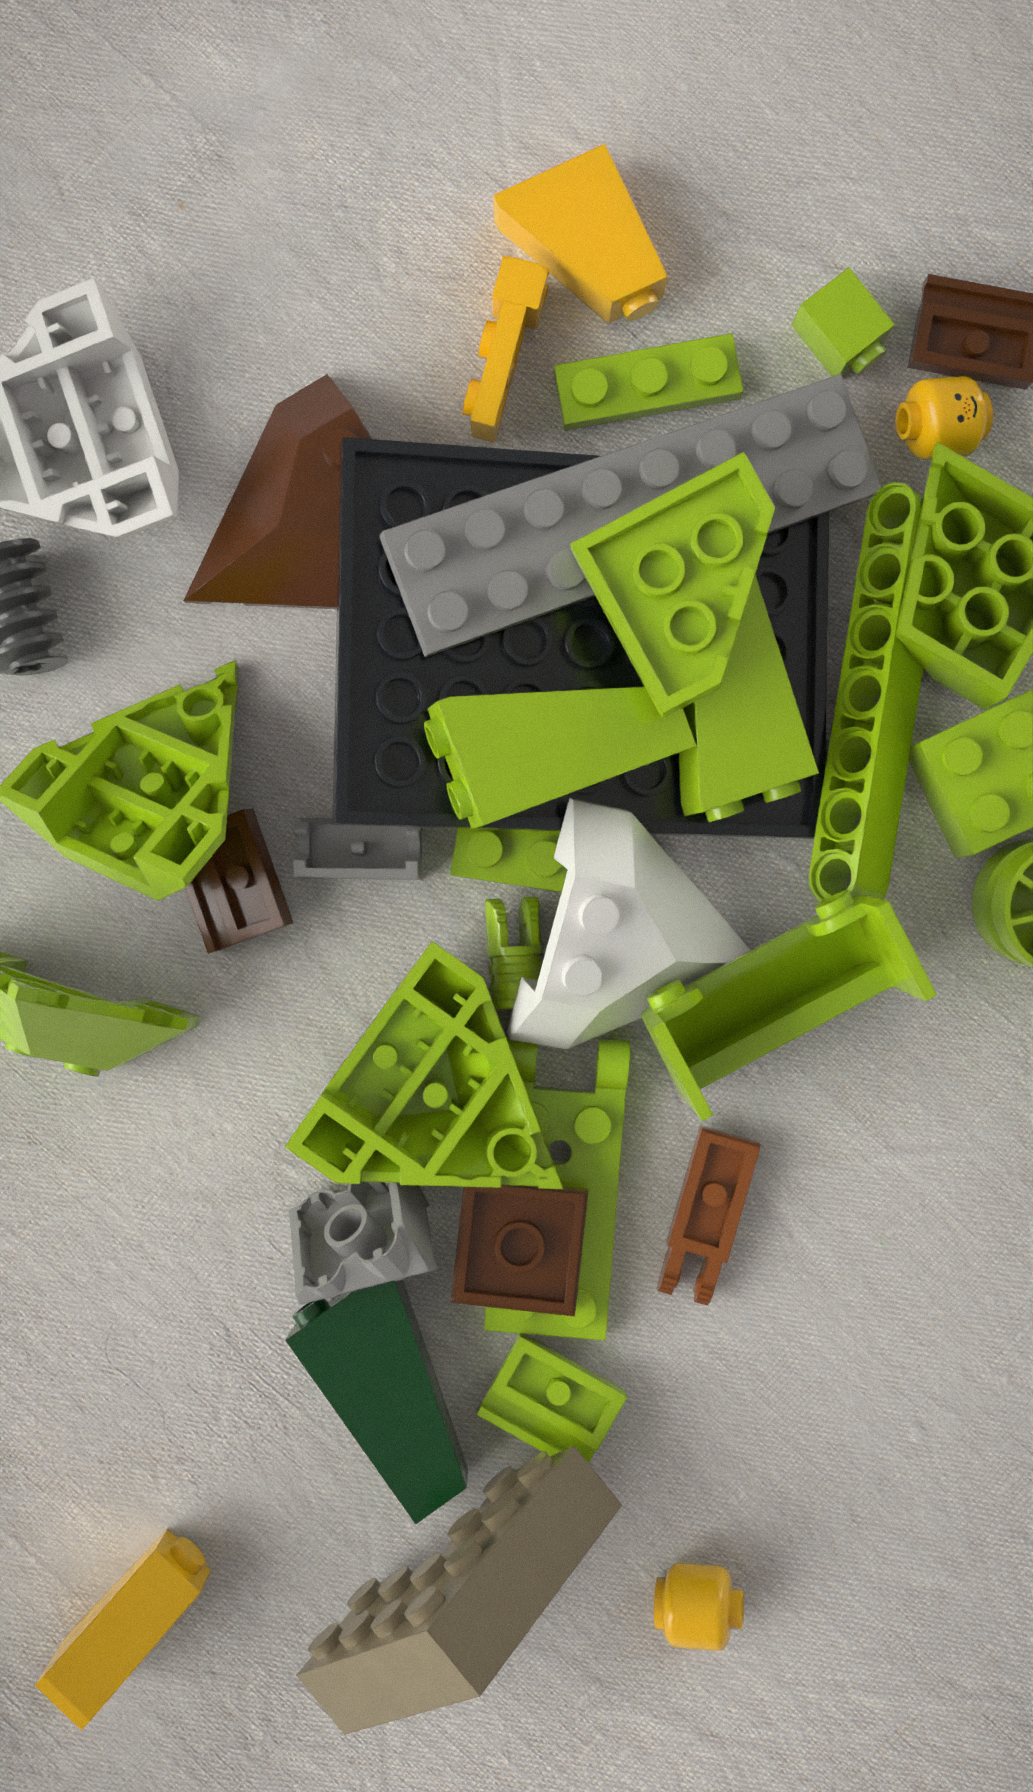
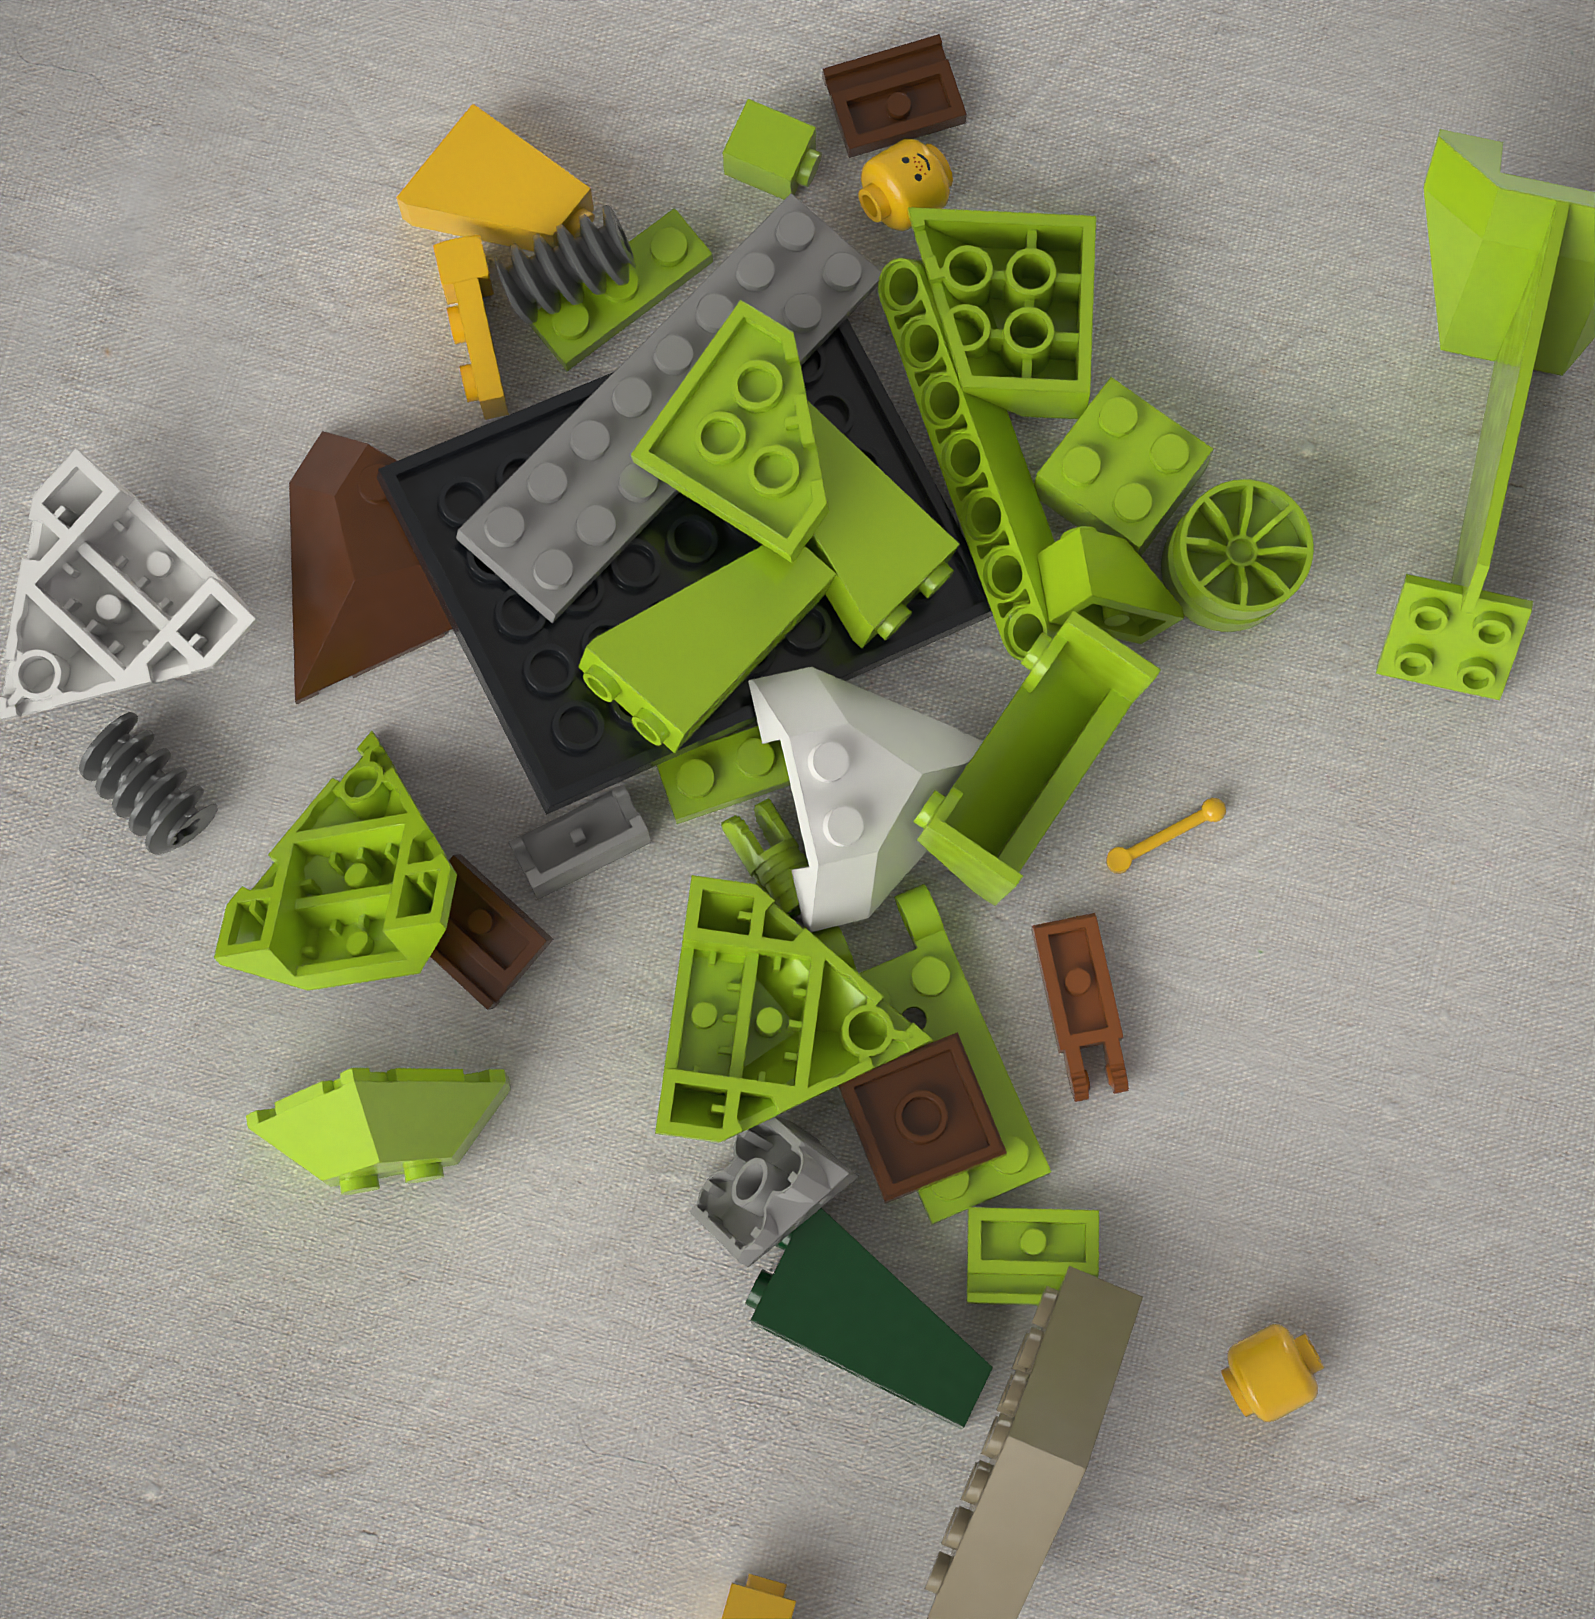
camera: 25 degrees left, 10 degrees down
(608, 338) = (566, 266): none -> dark grey piece
(807, 1105) = (1120, 859): none -> yellow hinge
(922, 871) = (1106, 585): none -> lime slope

